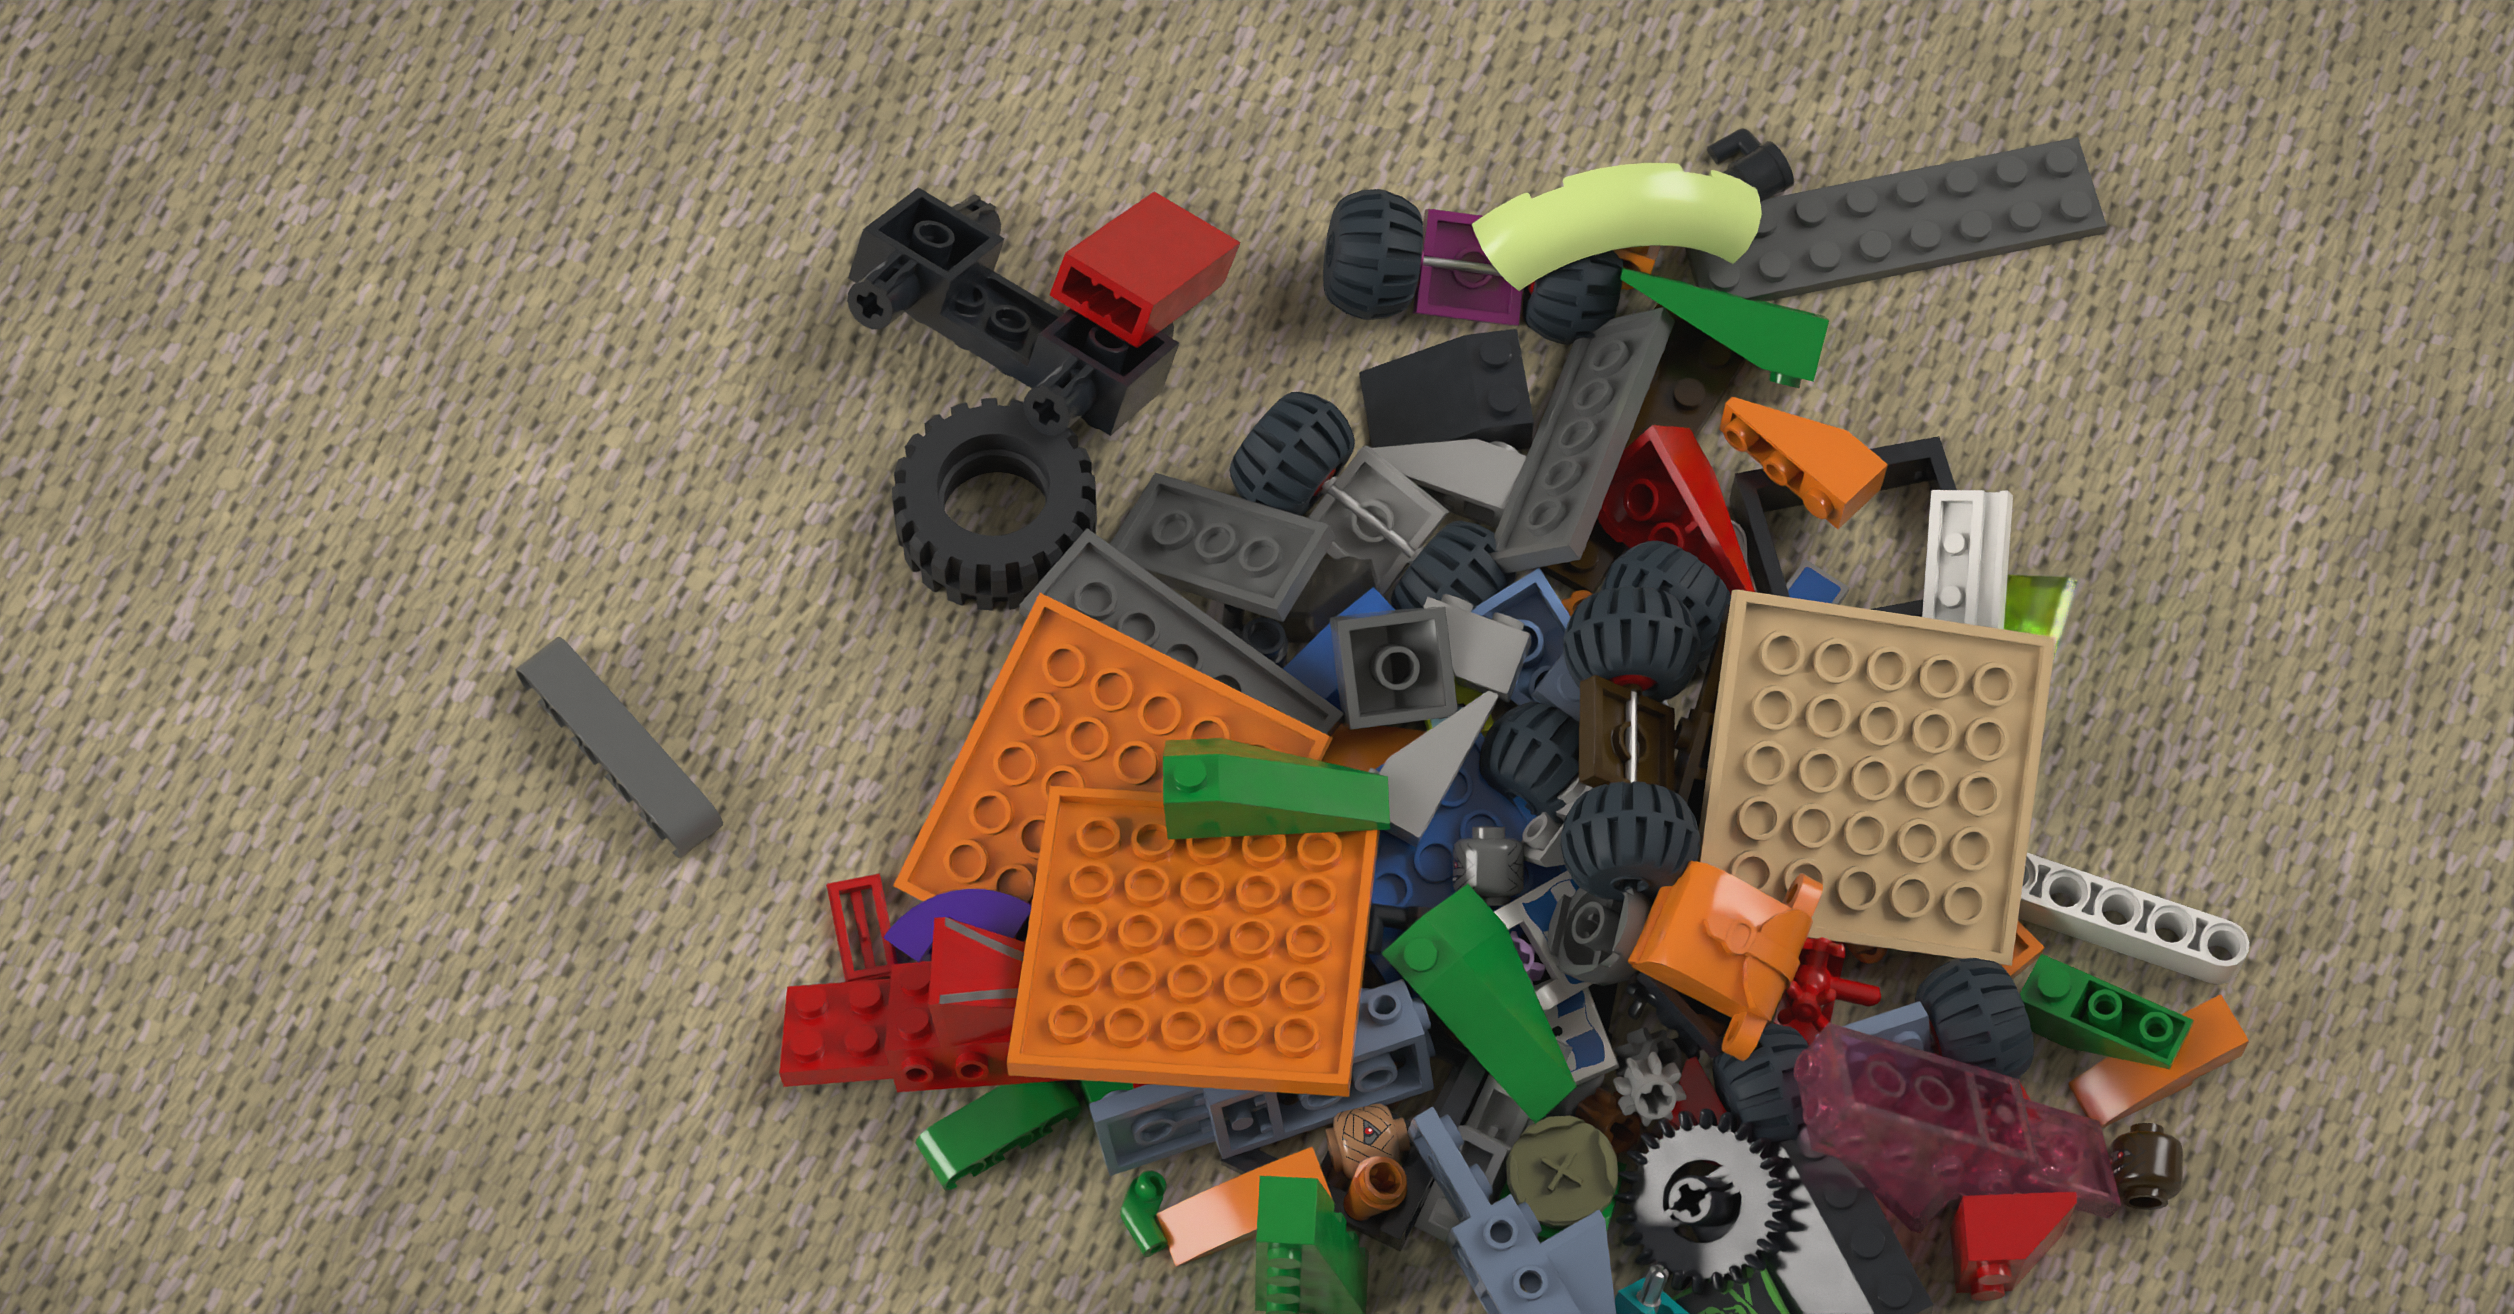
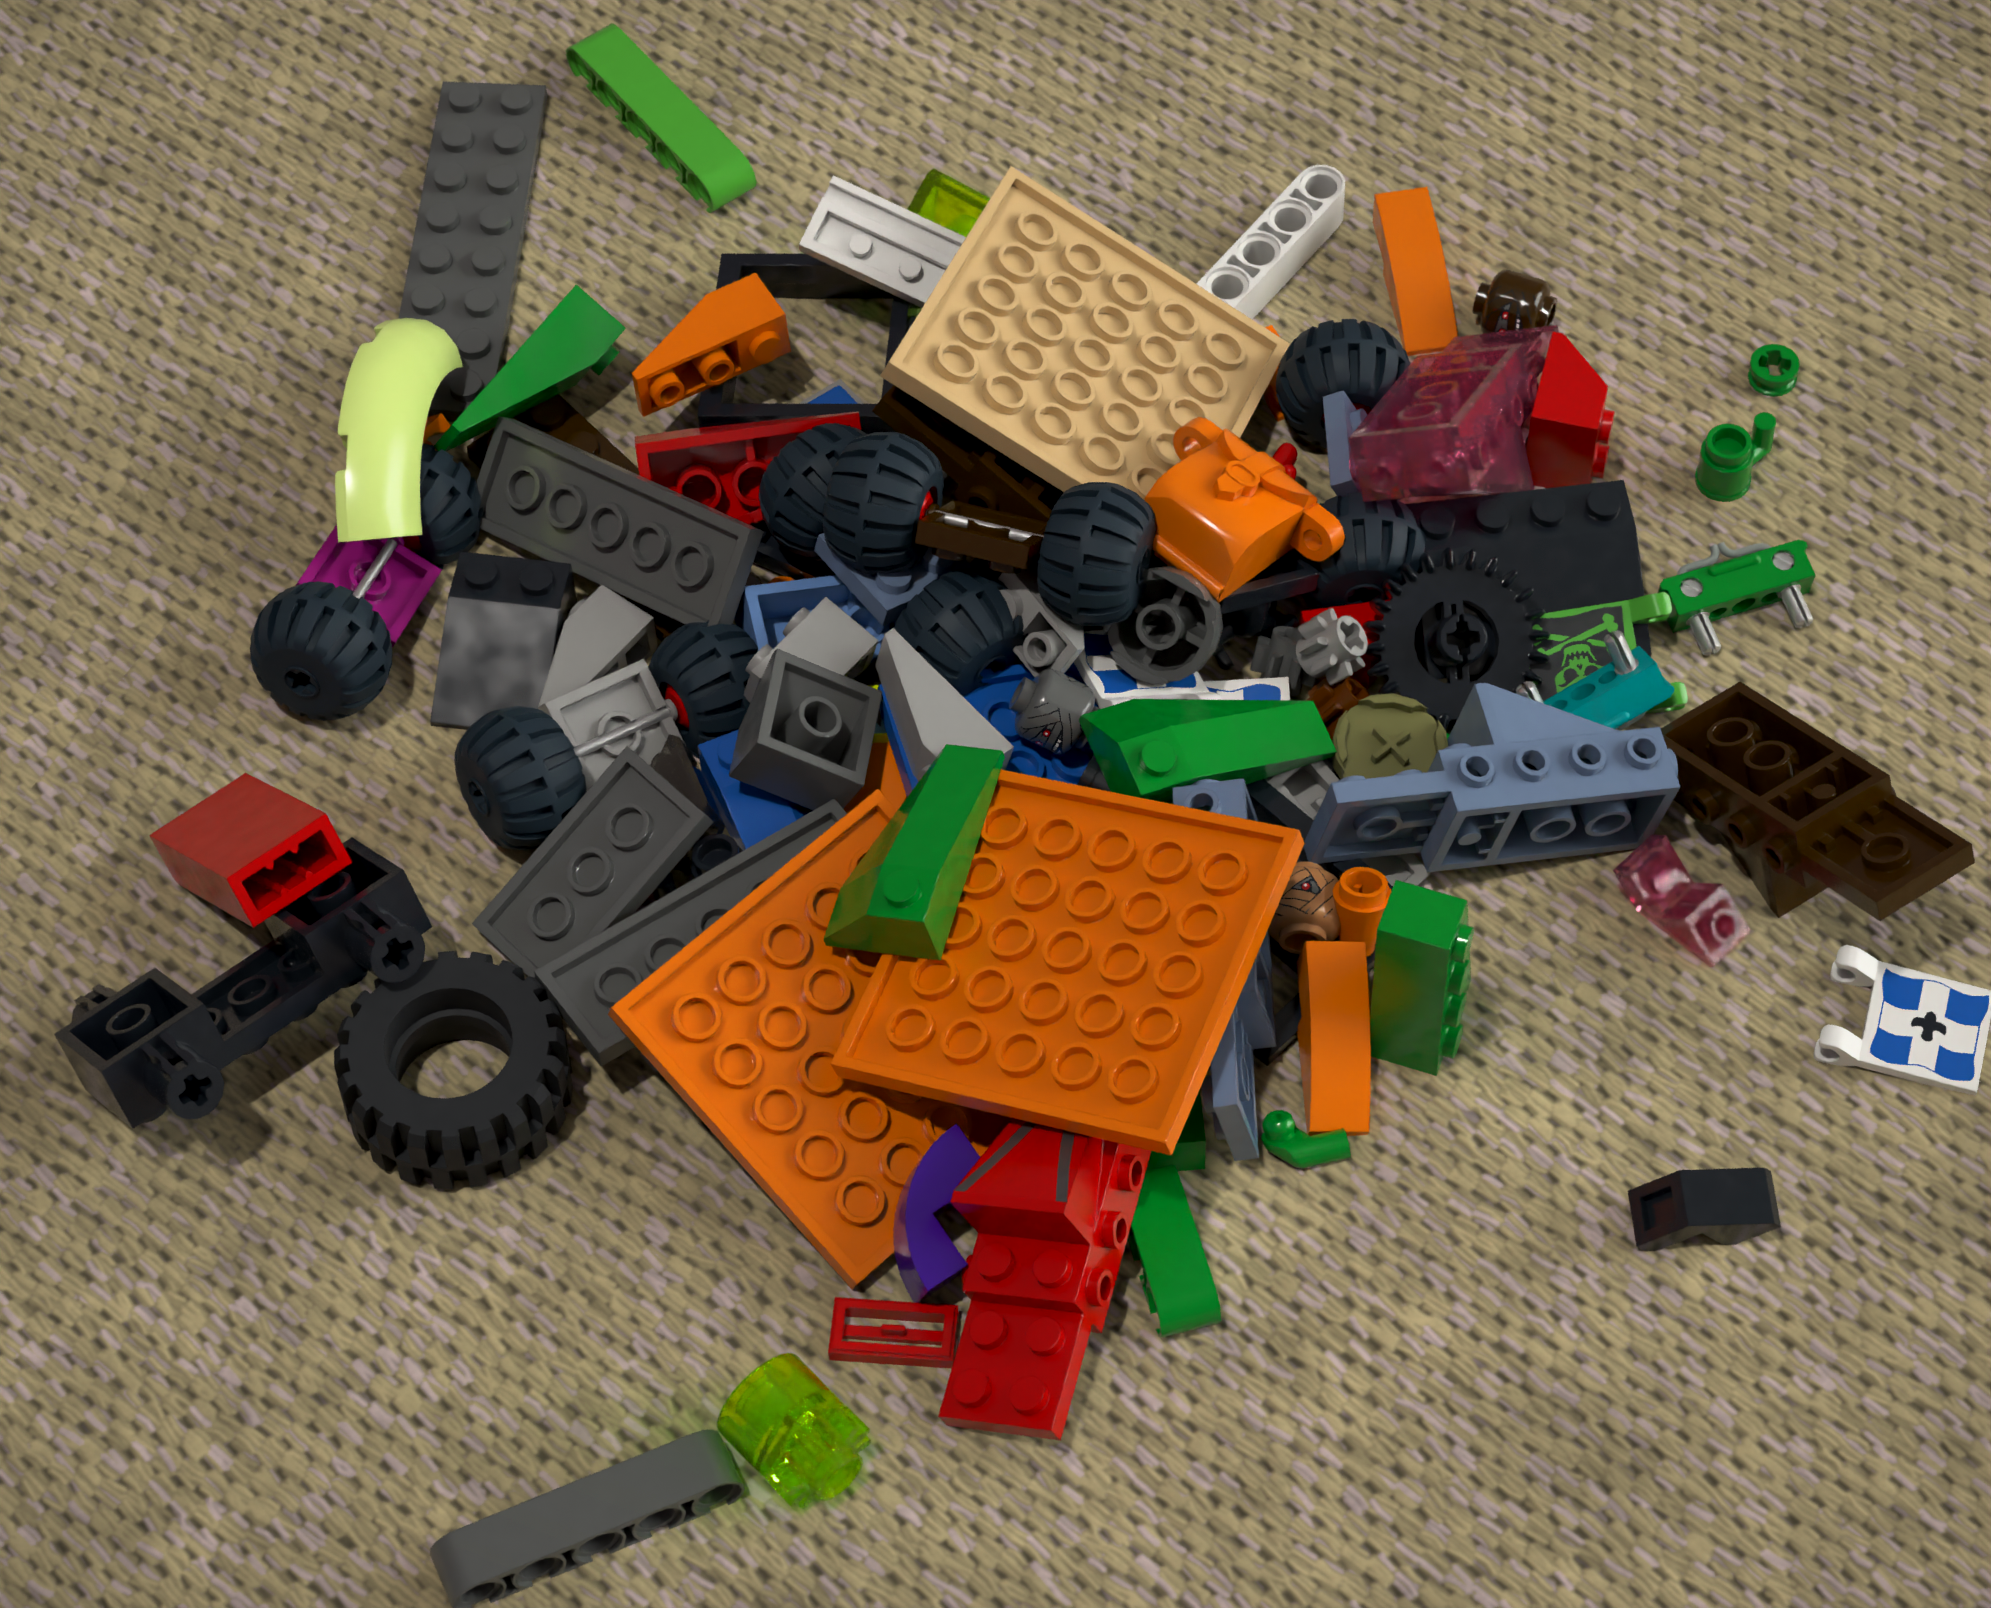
camera: 70 degrees left, 10 degrees down
(731, 876) = (794, 1431): none -> clear neon green gear
(1761, 165) = (354, 325): black piece -> none
(2100, 334) = (663, 116): none -> bright green beam
(2100, 1017) = (1372, 279): green slope -> none

